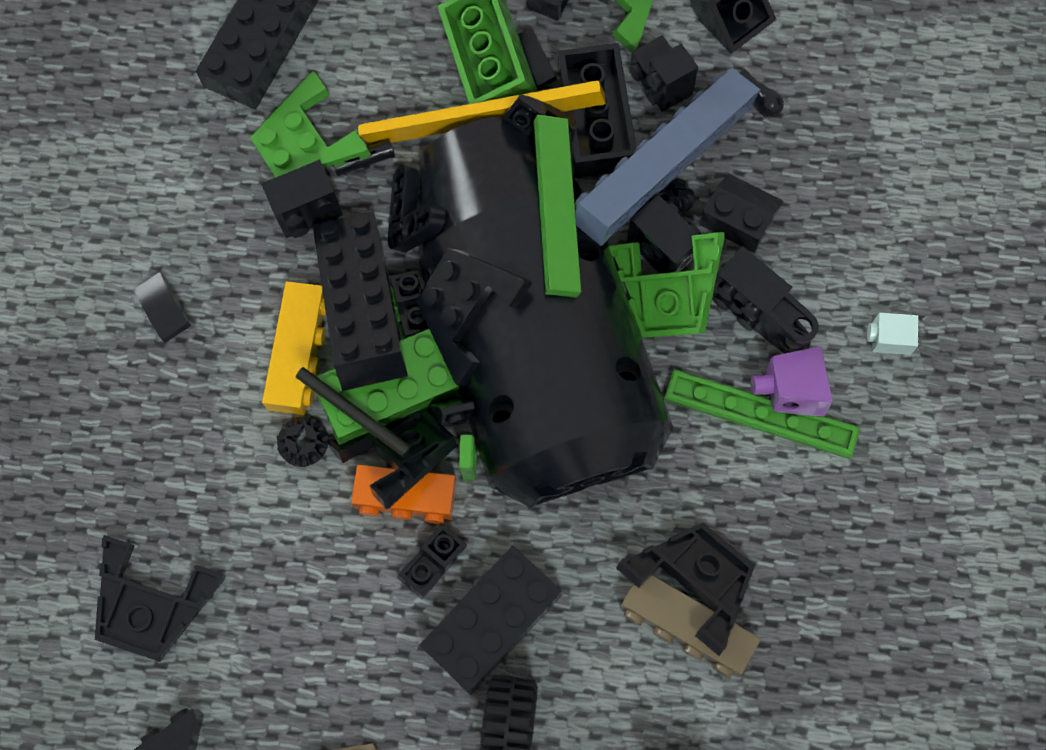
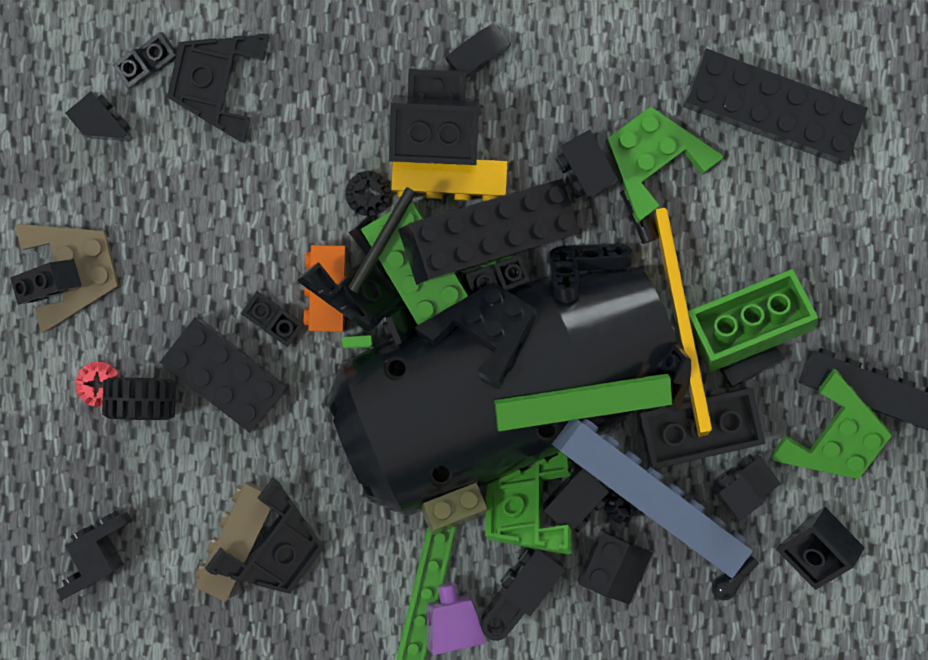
camera: 80 degrees right, 15 degrees up
(111, 685) = (145, 60): none -> black slope
(227, 349) = (434, 120): none -> black piece
(667, 369) = (454, 509): none -> olive brick

